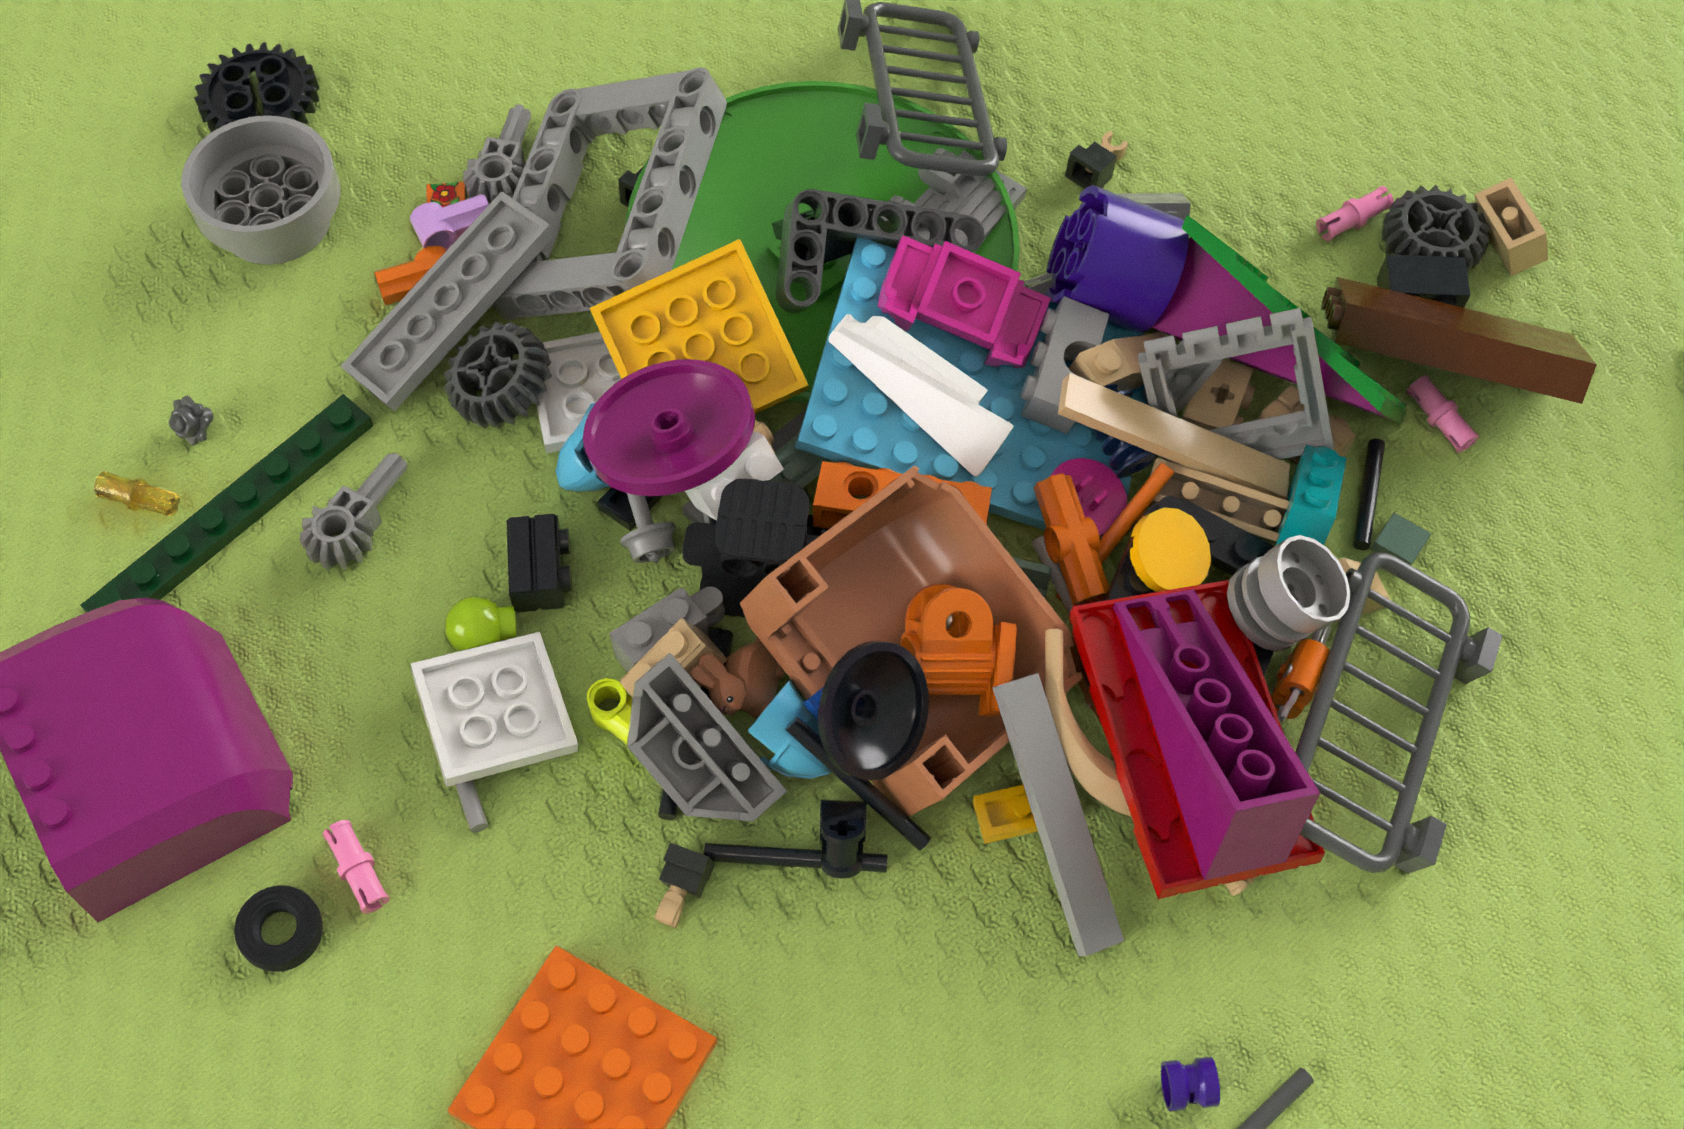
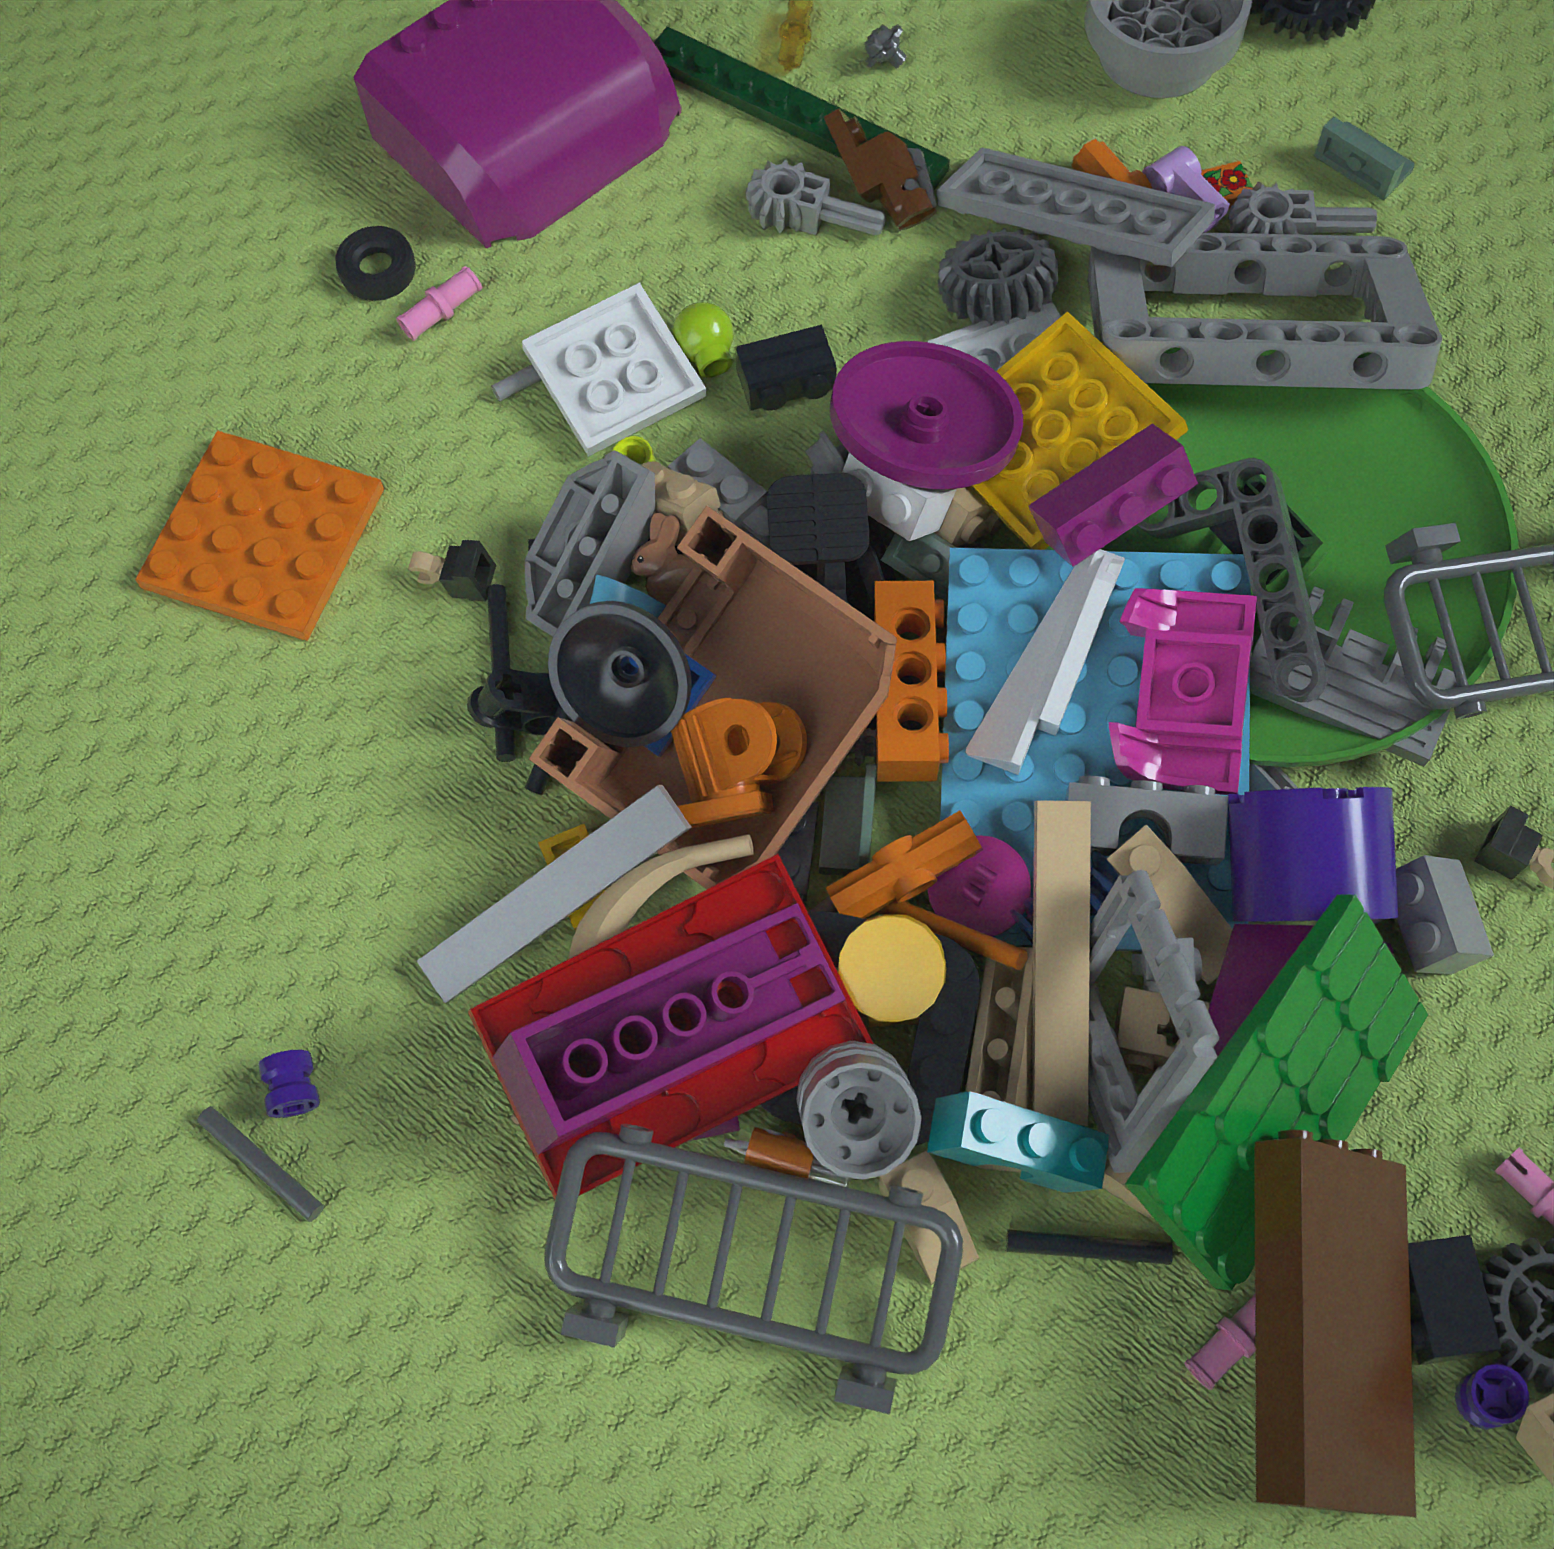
camera: 85 degrees right, 5 degrees up
(346, 440) = (885, 171): none -> reddish brown plate
(453, 104) = (1362, 158): none -> sand green panel
(795, 303) = (1113, 494): none -> magenta brick
(1401, 539) = (1024, 1291): sand green tile -> none
(1489, 276) = (1501, 1390): none -> dark purple wheel

